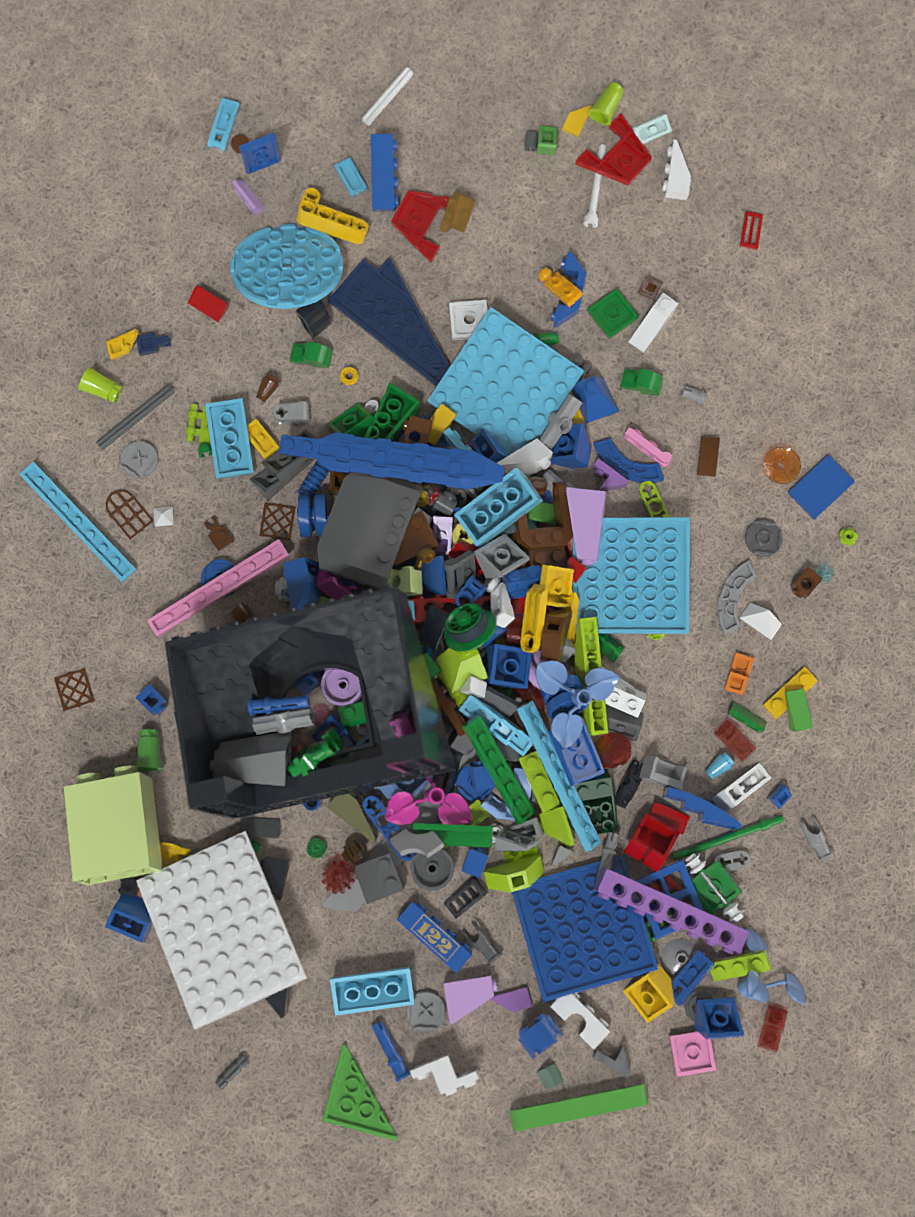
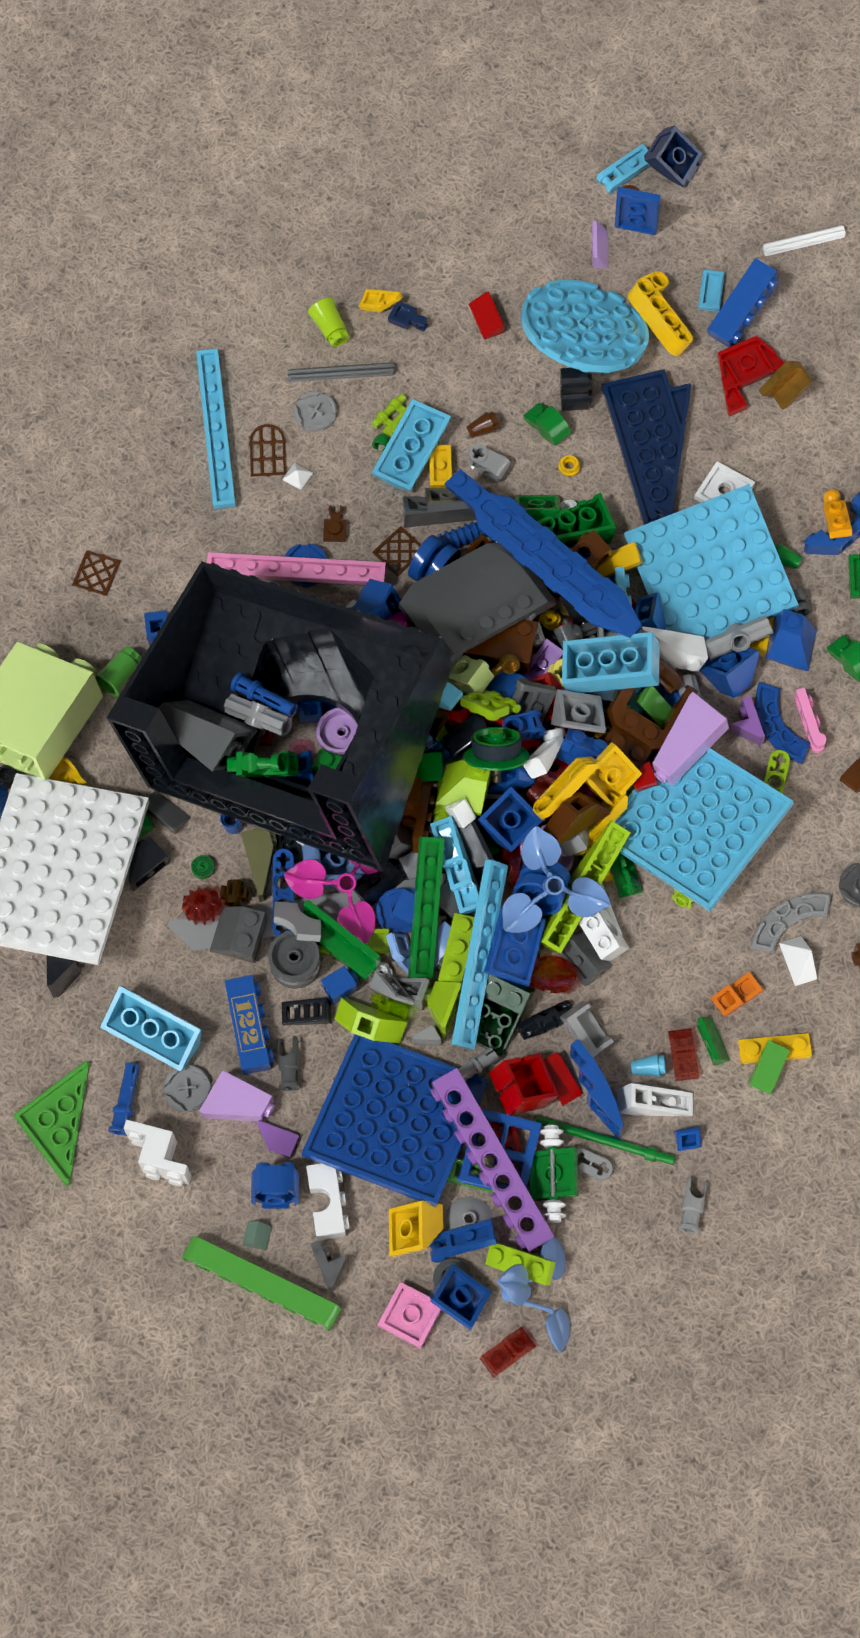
camera: 45 degrees right, 10 degrees down
(251, 93) = (674, 156): none -> dark blue slope
(437, 595) = (489, 704): none -> lime plate

